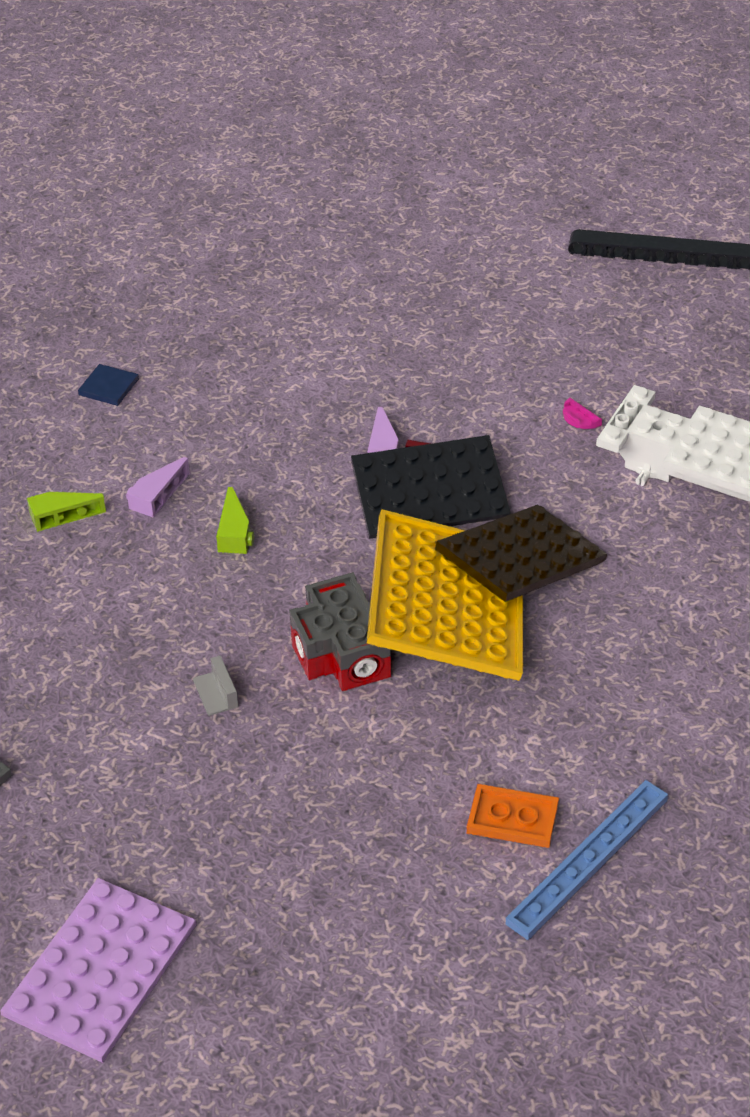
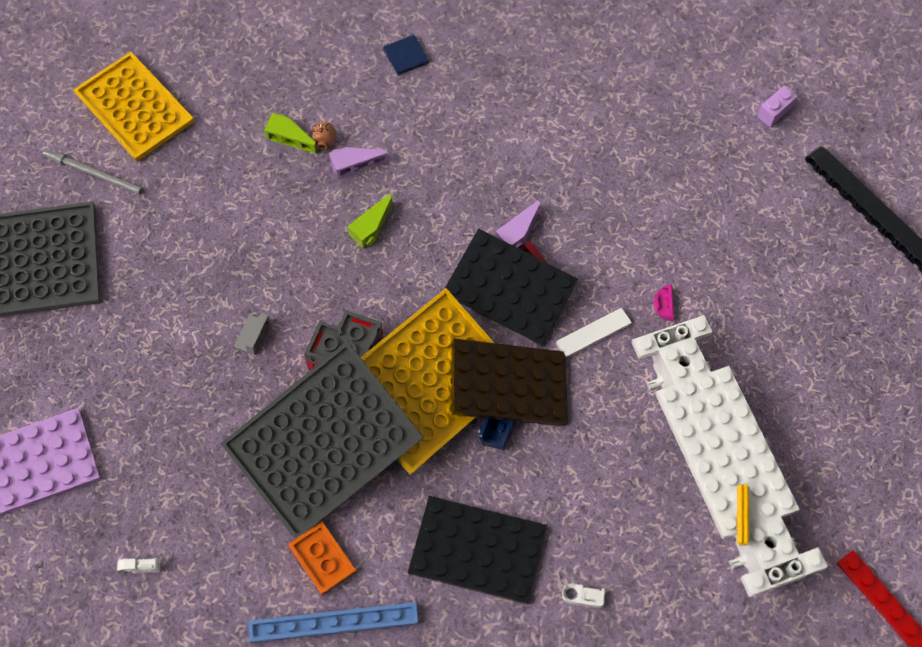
camera: 40 degrees right, 20 degrees up
(102, 483) = (324, 135): none -> nougat head
(333, 962) = (139, 565): none -> white piece
(409, 701) = (322, 440): none -> dark grey plate
(502, 226) = (777, 106): none -> lavender brick
(544, 475) = (593, 333): none -> white tile
(552, 602) = (495, 433): none -> dark blue bracket
(646, 704) = (477, 549): none -> black plate

